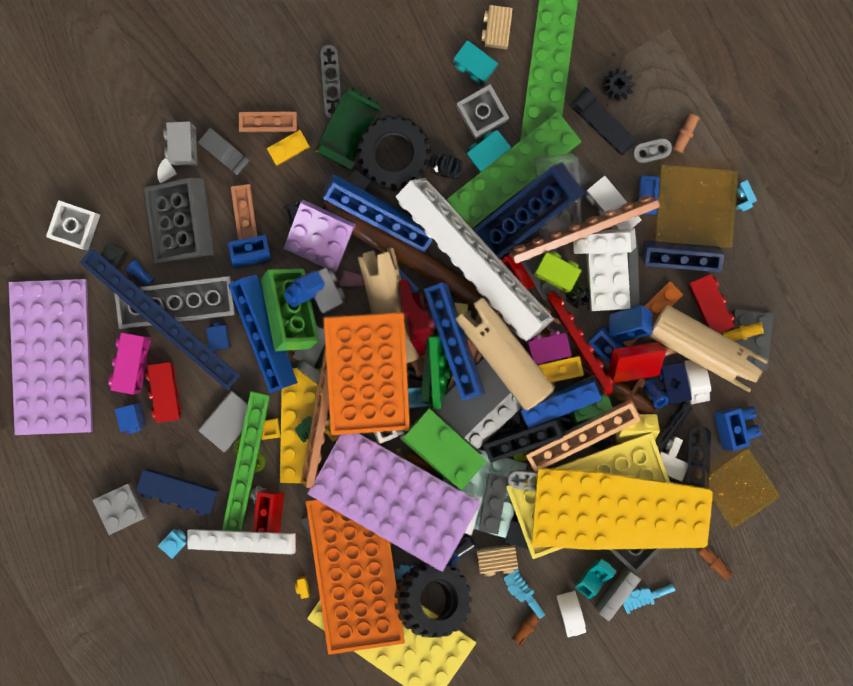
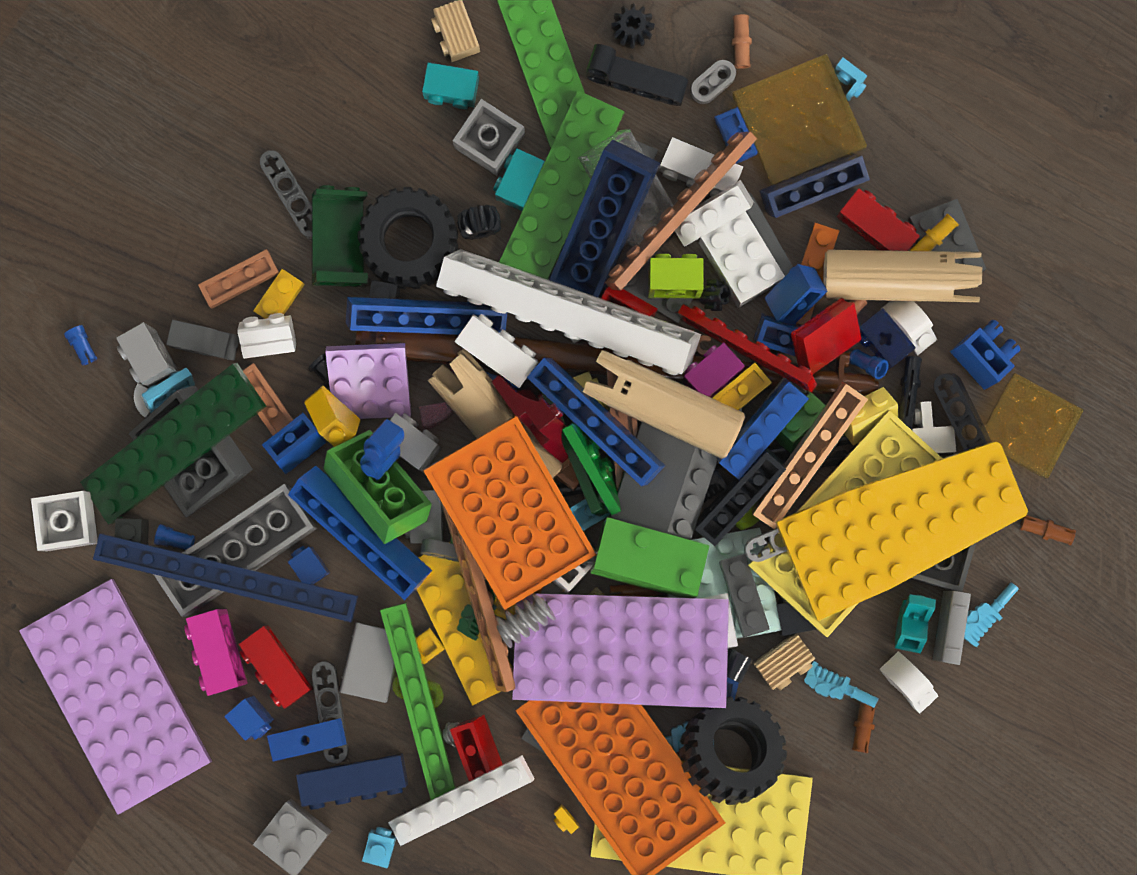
camera: 30 degrees left, 5 degrees down
(141, 107) = (78, 339): none -> blue pin
(152, 448) = (295, 743): none -> blue tile
(170, 211) = (173, 443): none -> dark green plate
(176, 173) = (159, 393): none -> medium azure plate
(182, 438) = (333, 711): none -> dark grey beam
(267, 170) = (266, 336): none -> white brick
(282, 248) = (332, 417): none -> yellow slope
(344, 447) = (524, 619): none -> light grey piece
(414, 260) = (497, 349): none -> white brick

